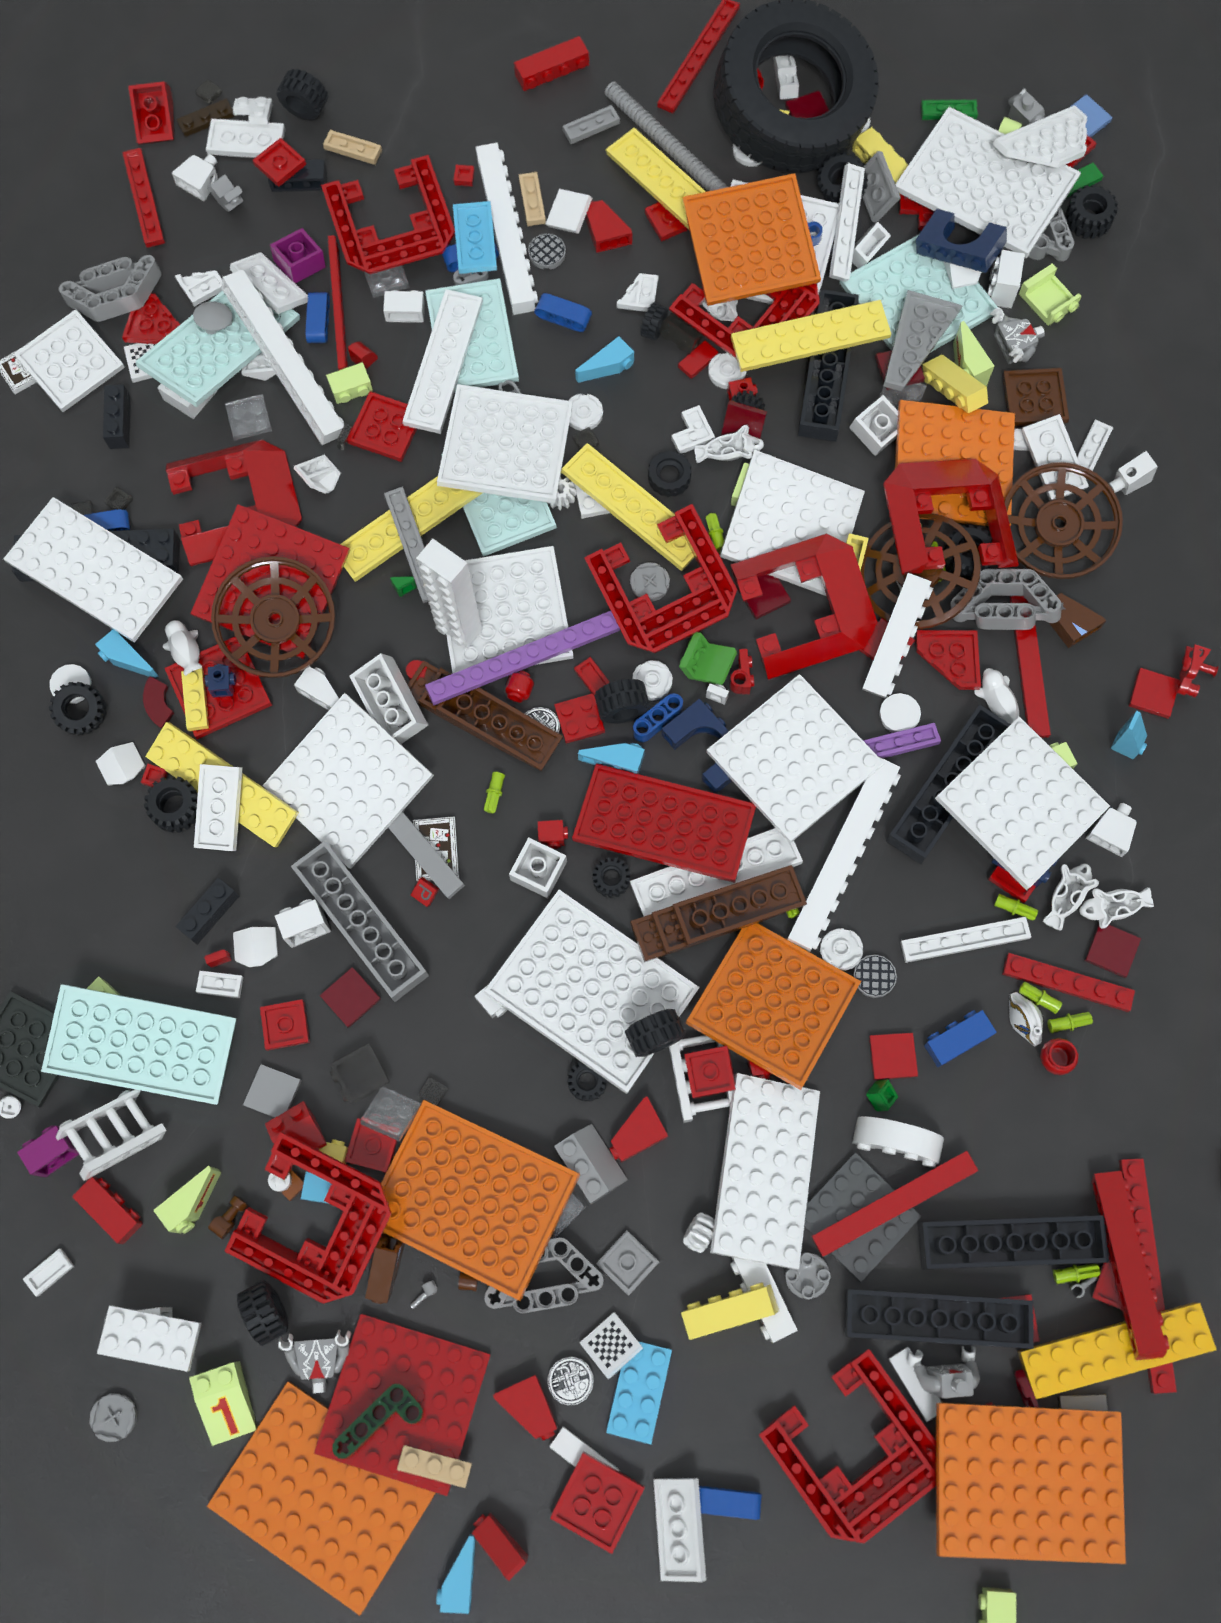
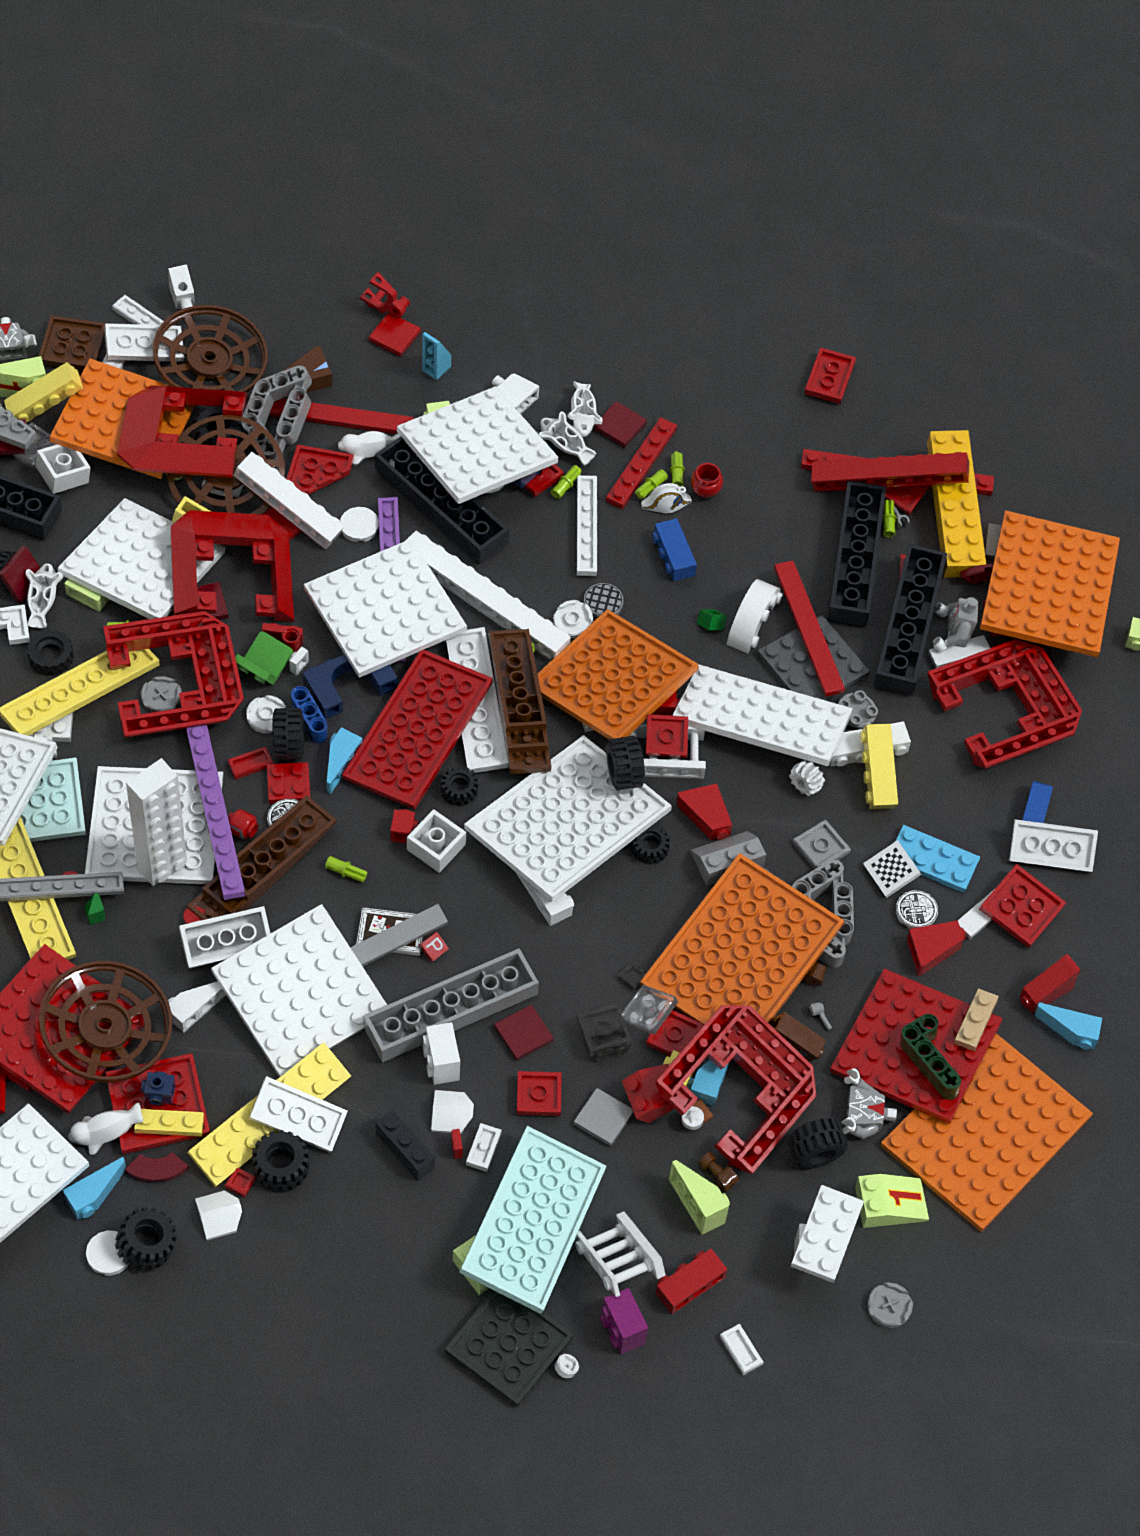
camera: 85 degrees left, 15 degrees down
(893, 1056) = (678, 604): red tile -> none

